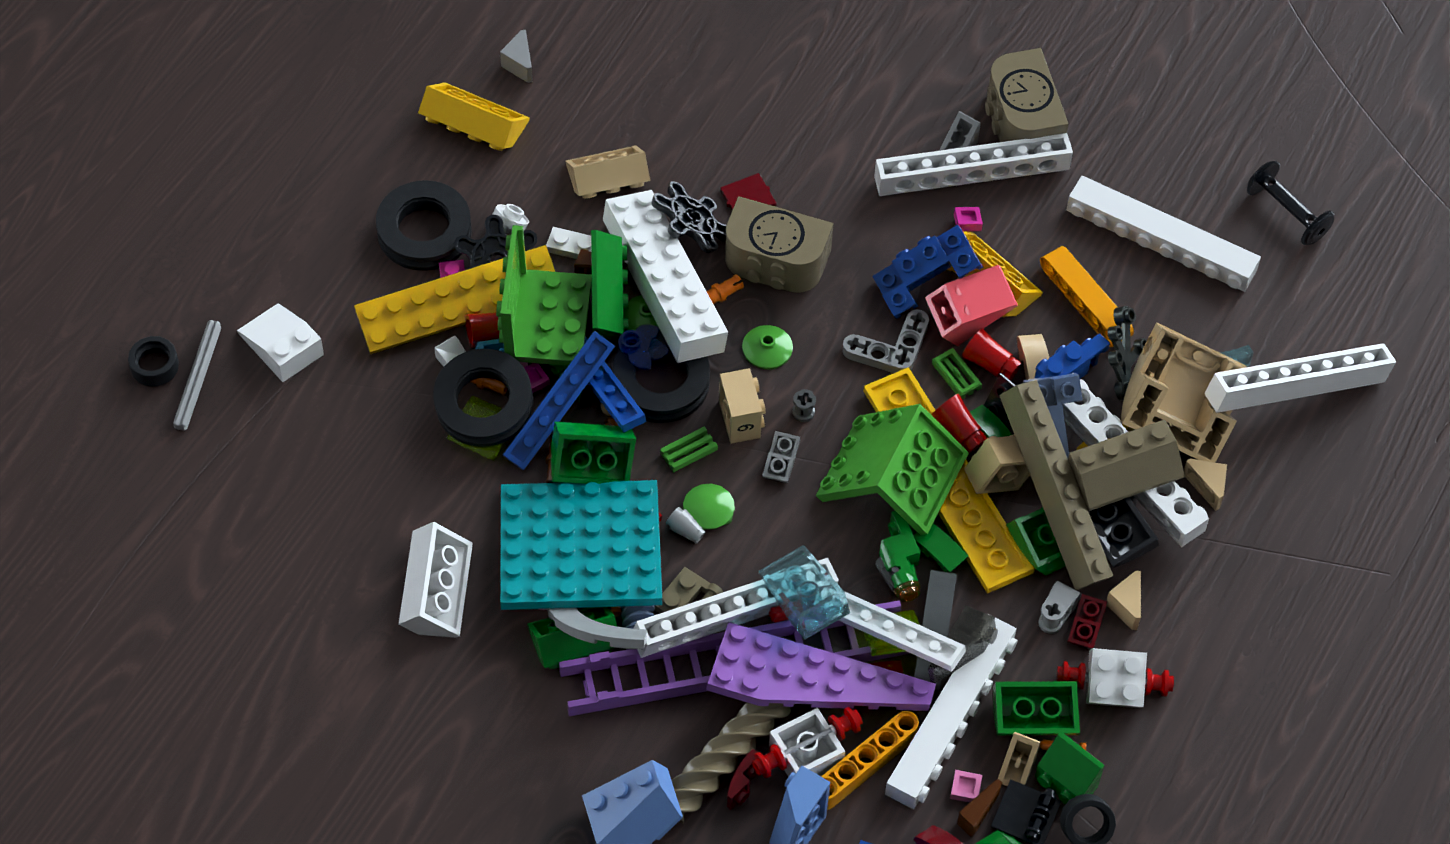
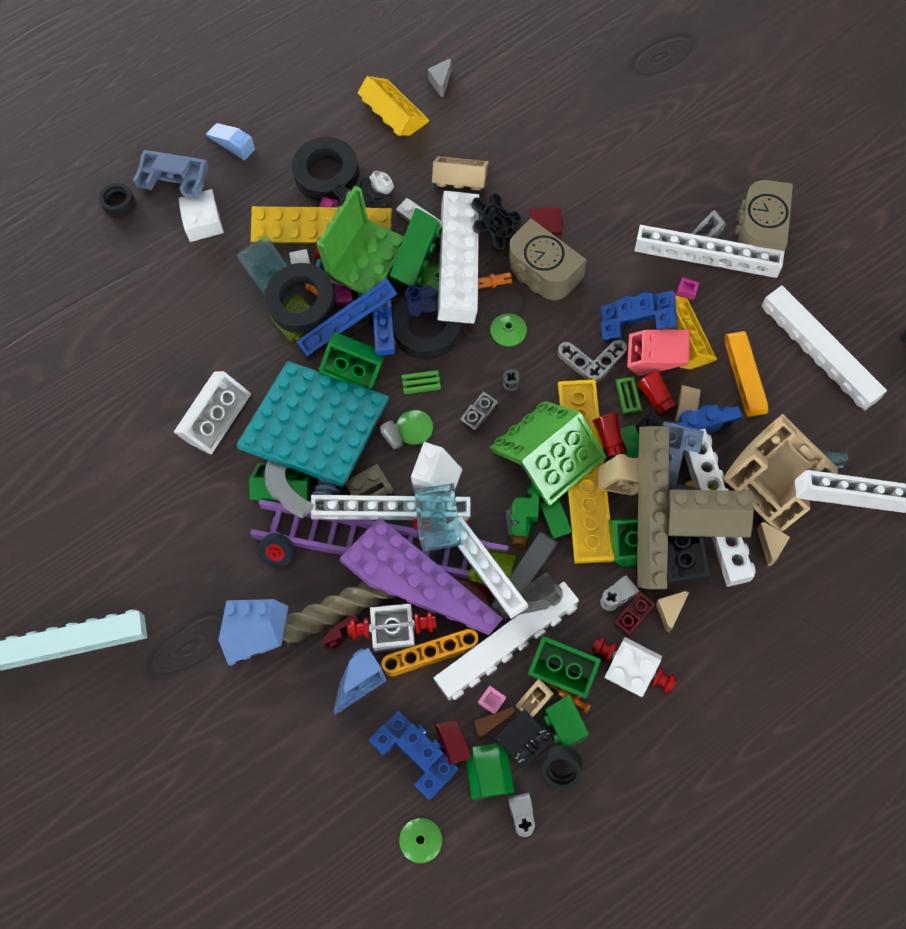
camera: 30 degrees right, 10 degrees up
(197, 375) = (139, 218): light grey axle -> none
(214, 294) = (171, 168): none -> sand blue bracket
(273, 229) = (232, 139): none -> light blue slope
(406, 376) = (261, 262): none -> clear light blue slope
(612, 714) = (276, 550): none -> black wheel
(741, 405) = (466, 365): tan brick -> none
(763, 541) = (434, 468): none -> white slope
(1123, 354) = (751, 426): pearl dark grey plant -> none

